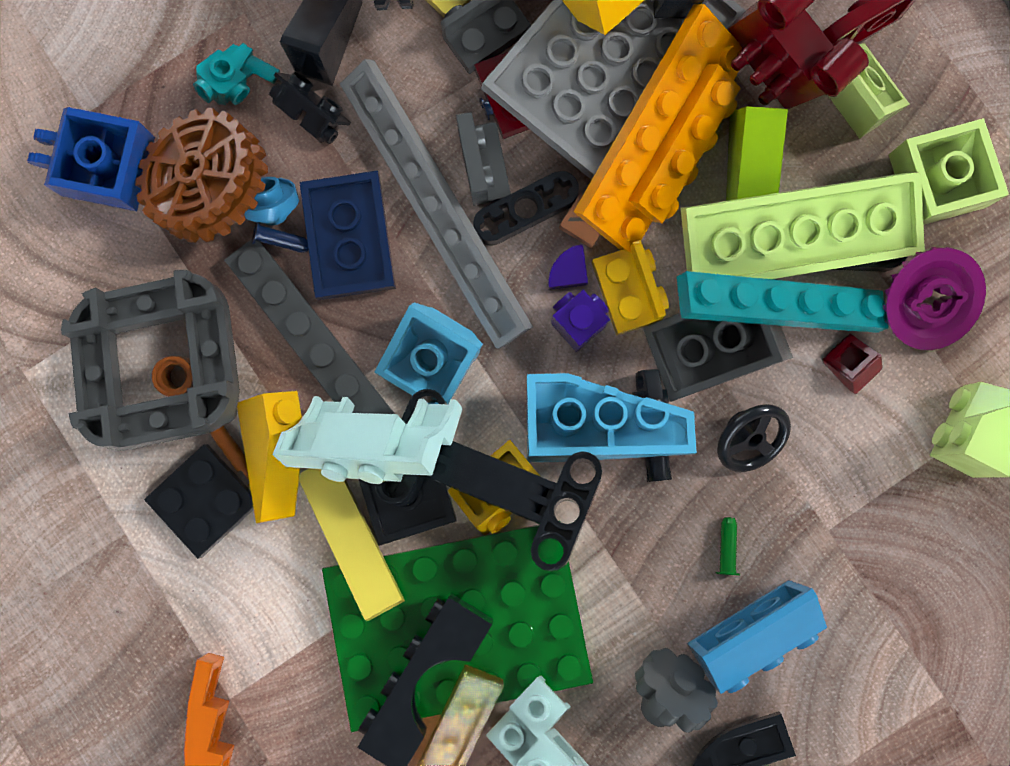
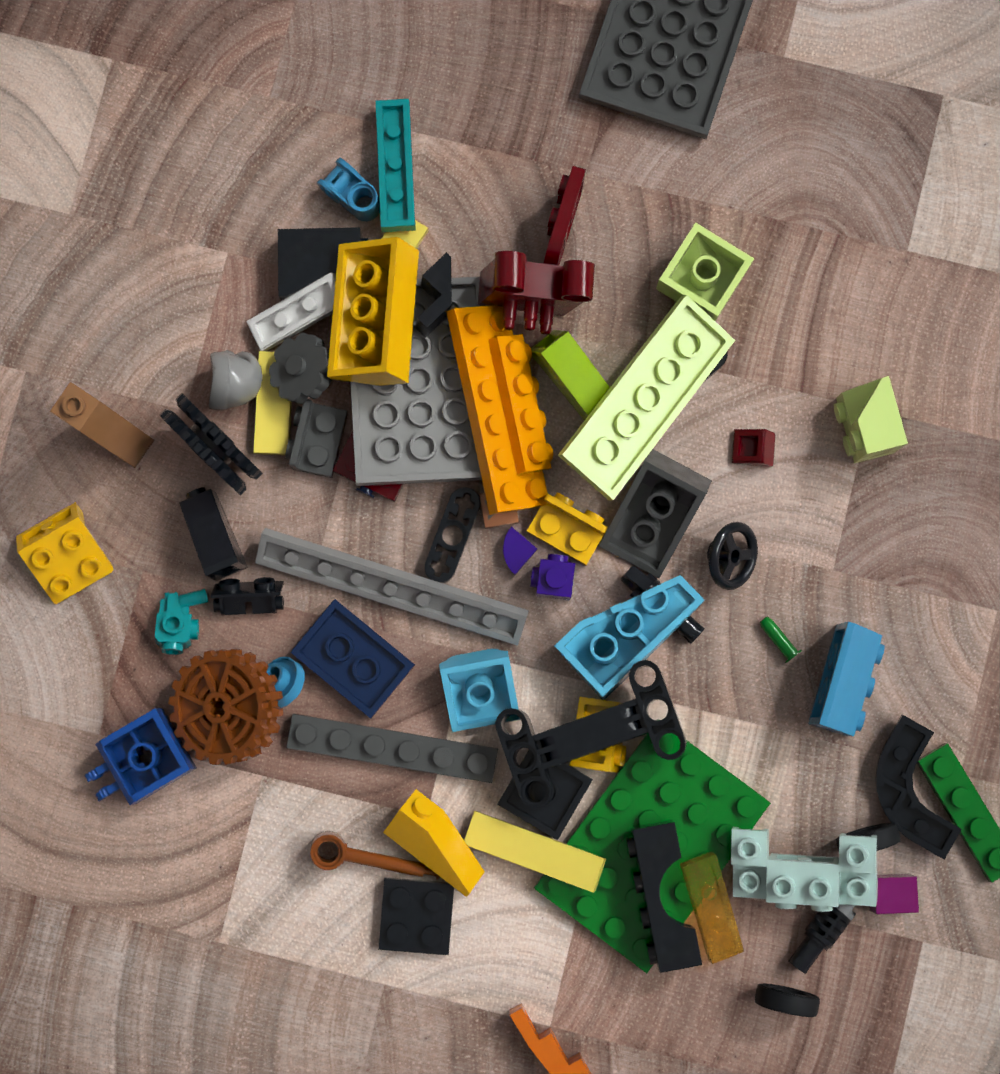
camera: 40 degrees left, 0 degrees up
(96, 364) = (274, 896): dark grey plate -> none
(279, 238) = (310, 701): dark blue piece -> none
(368, 443) = (496, 781): light aqua bracket -> none
(483, 160) = (397, 529): dark grey bracket -> none
(674, 691) = (824, 760): dark grey plant -> none
(780, 302) = (674, 456): teal plate -> none
(869, 98) = (612, 257): yellowish green slope -> none
(952, 316) = (788, 362): magenta gear -> none

